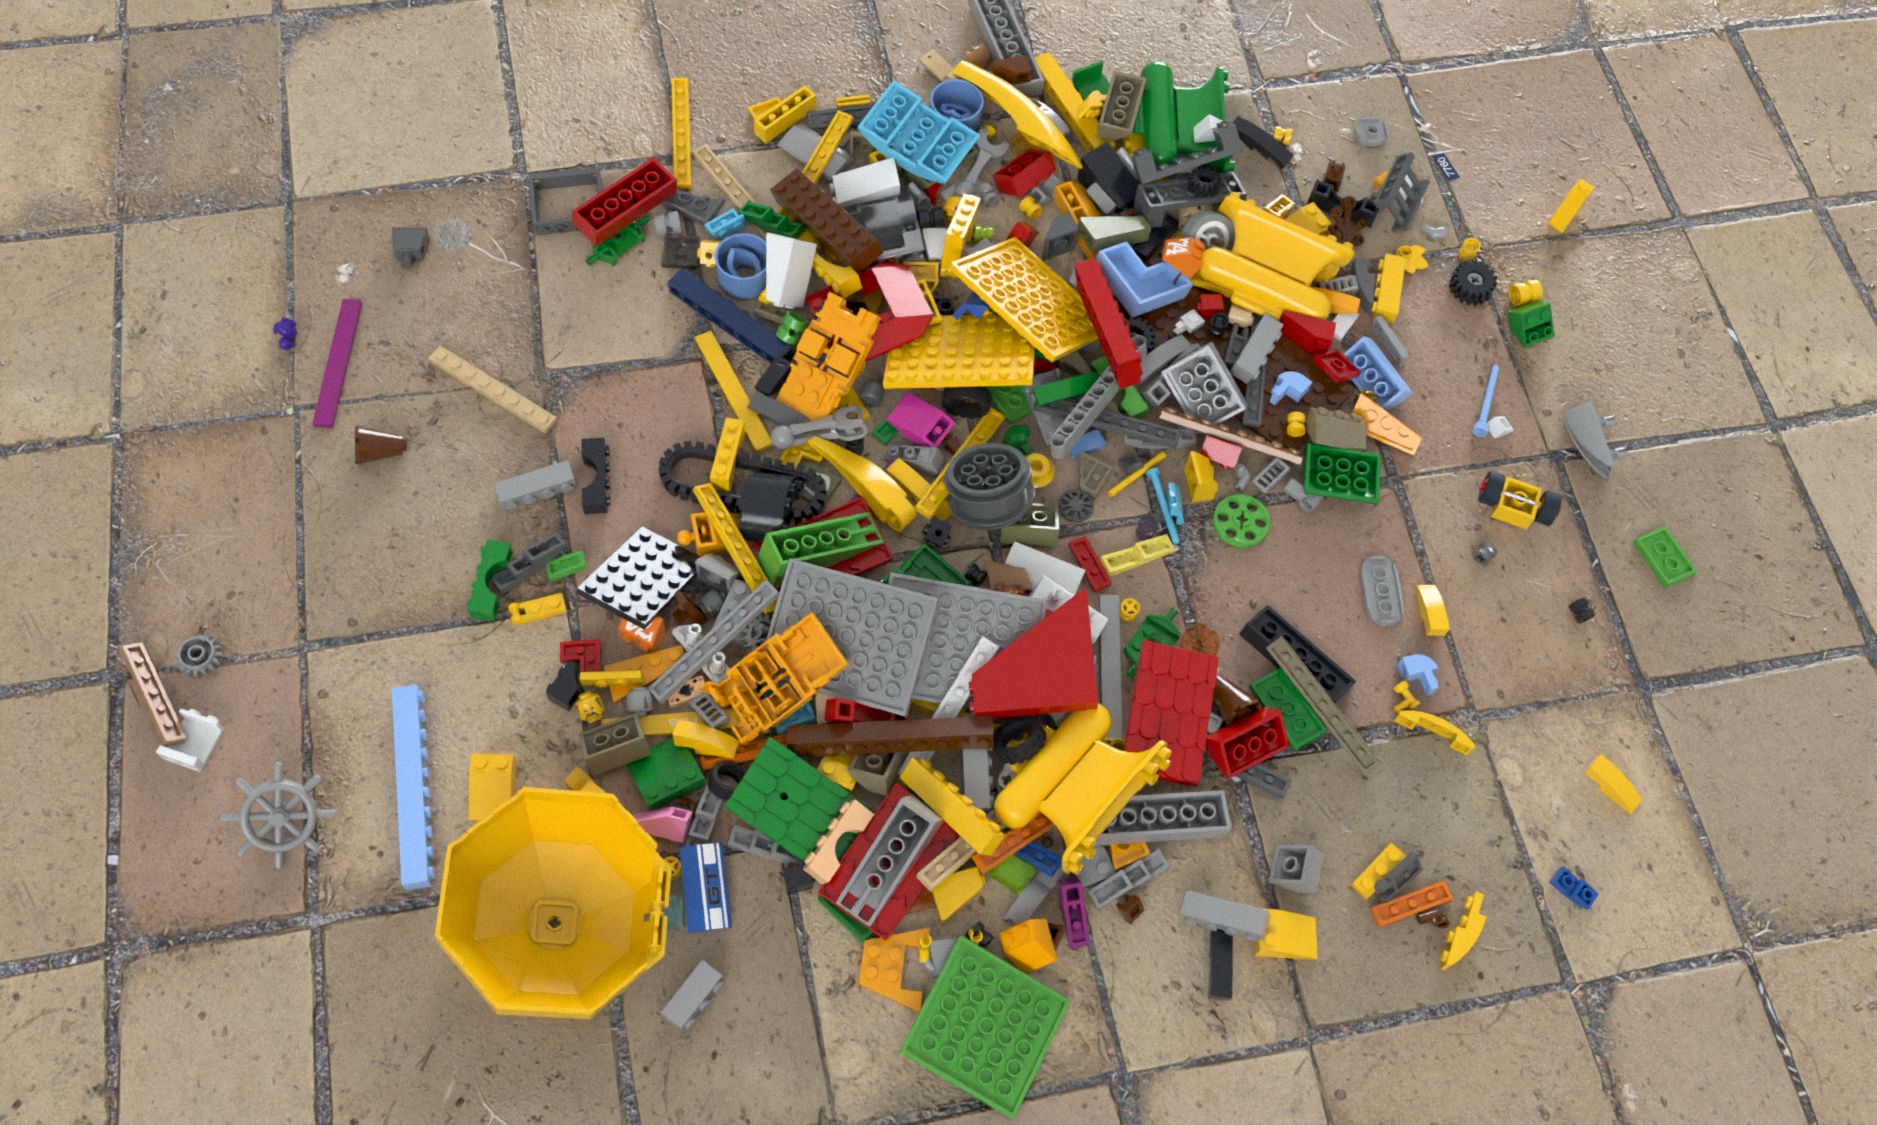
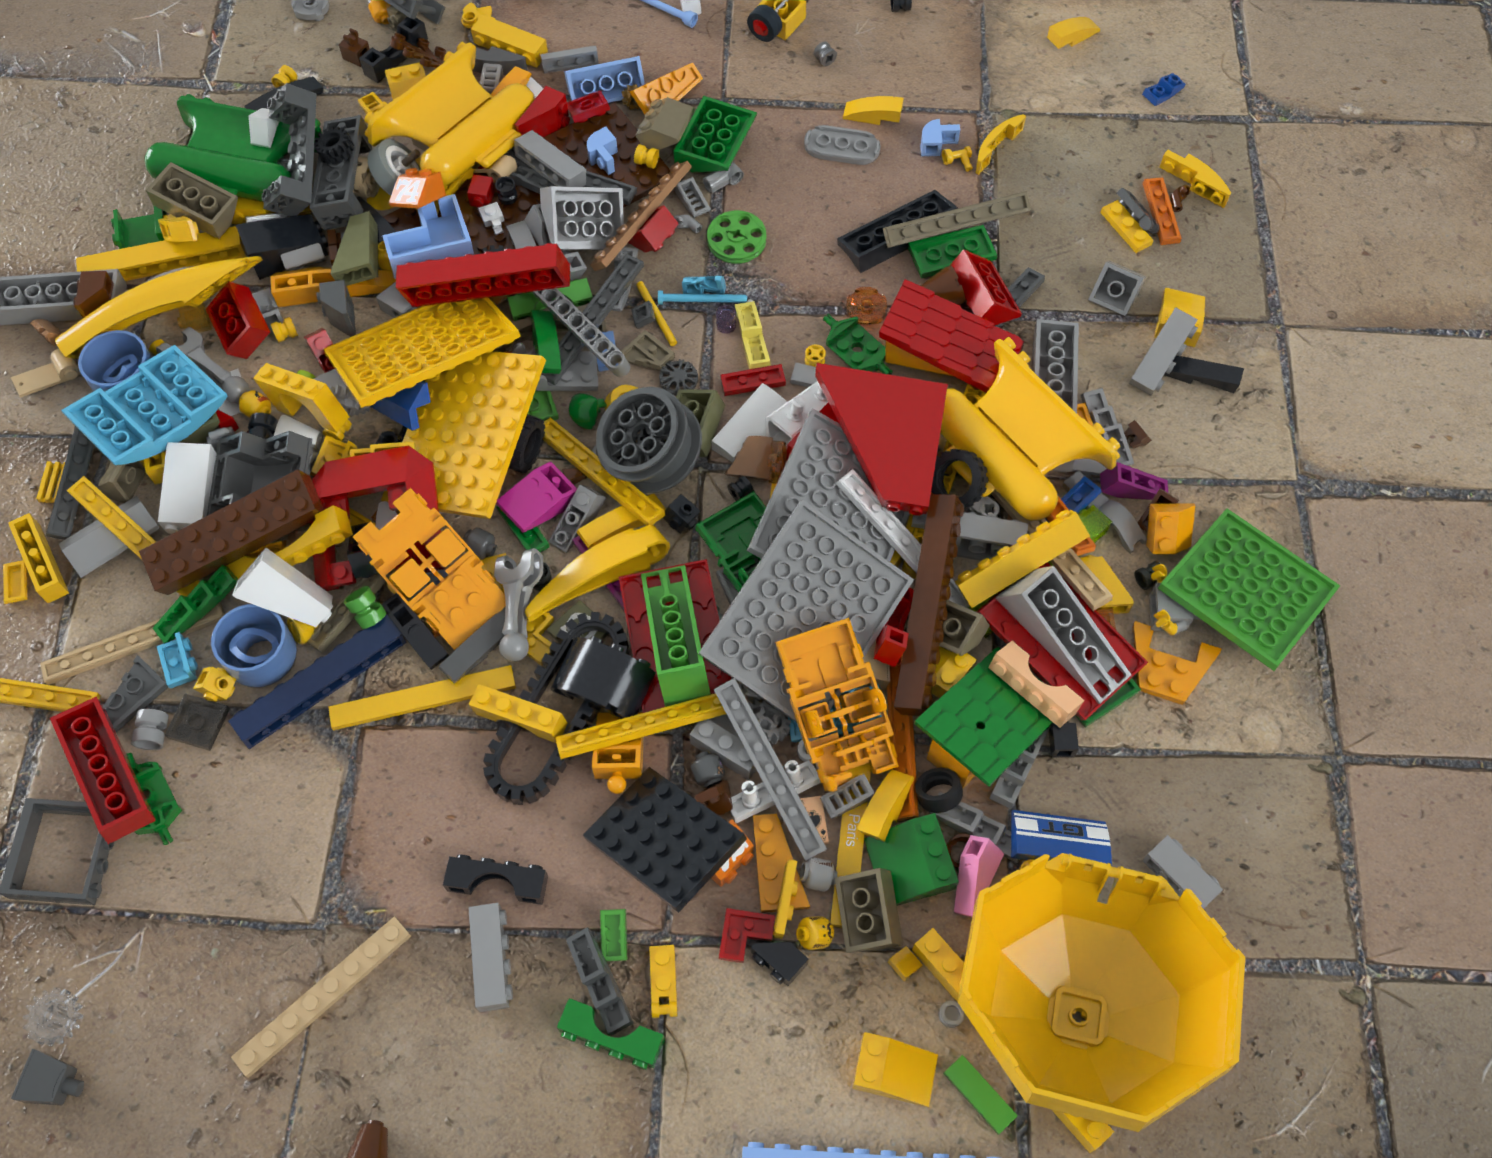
camera: 70 degrees left, 0 degrees up
(717, 572) = (673, 753): light grey slope -> none
(988, 195) = (248, 367): light grey wheel -> none
(1200, 477) = (681, 257): yellow slope -> none

